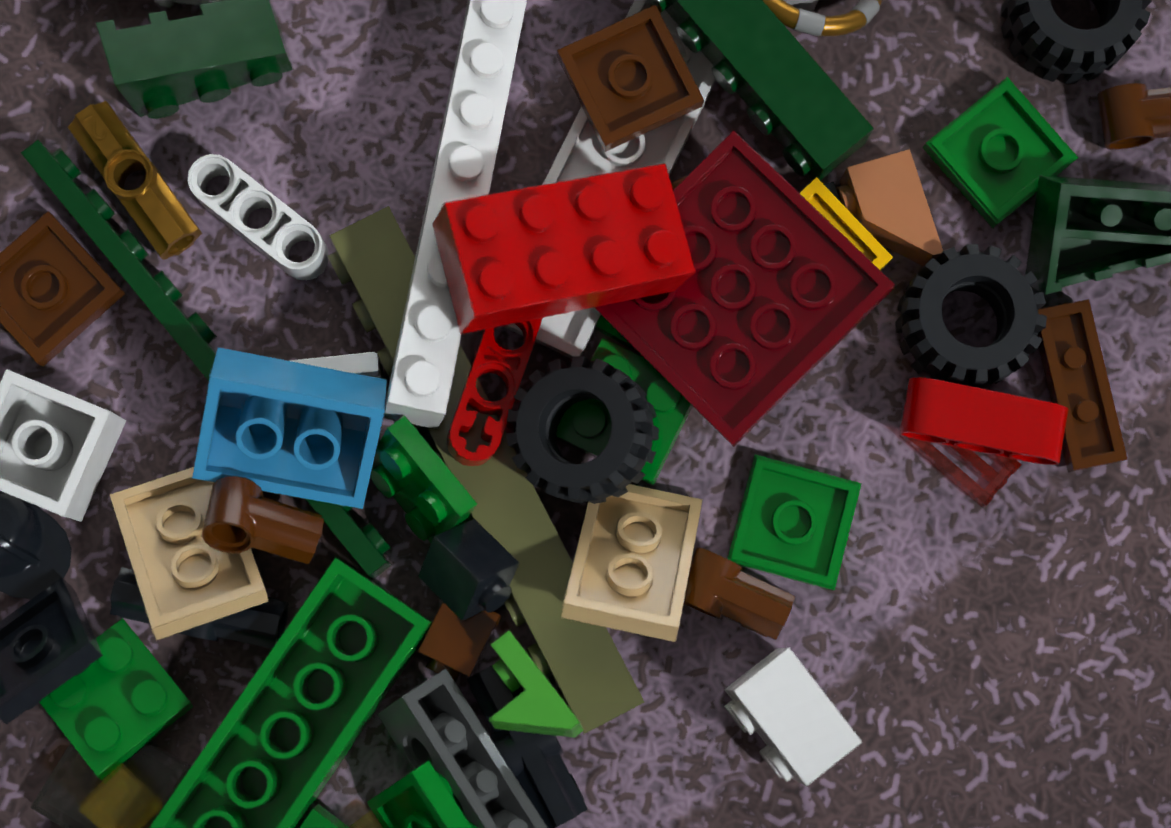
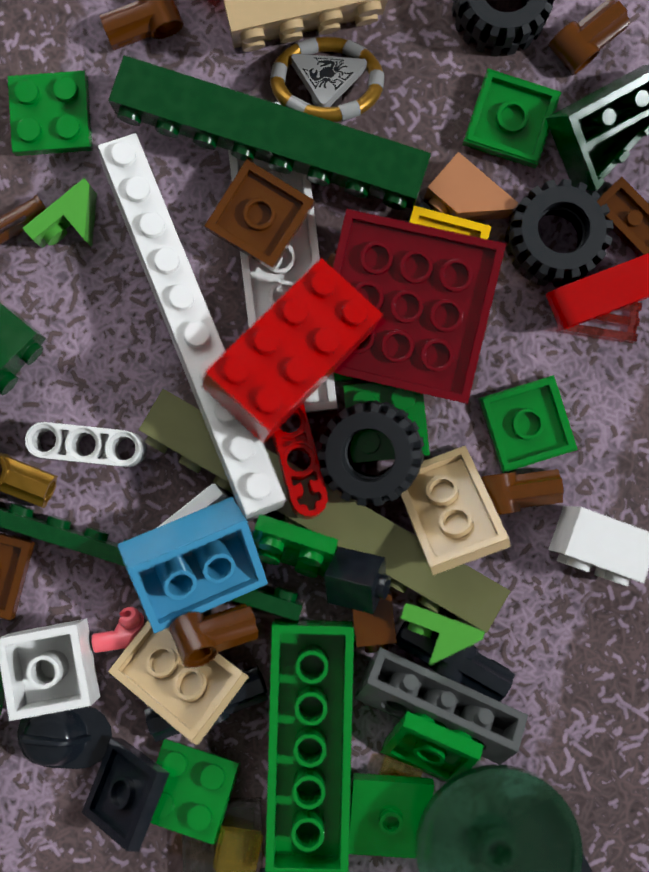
camera: 30 degrees left, 5 degrees up
(171, 458) = (125, 631): none -> coral arm

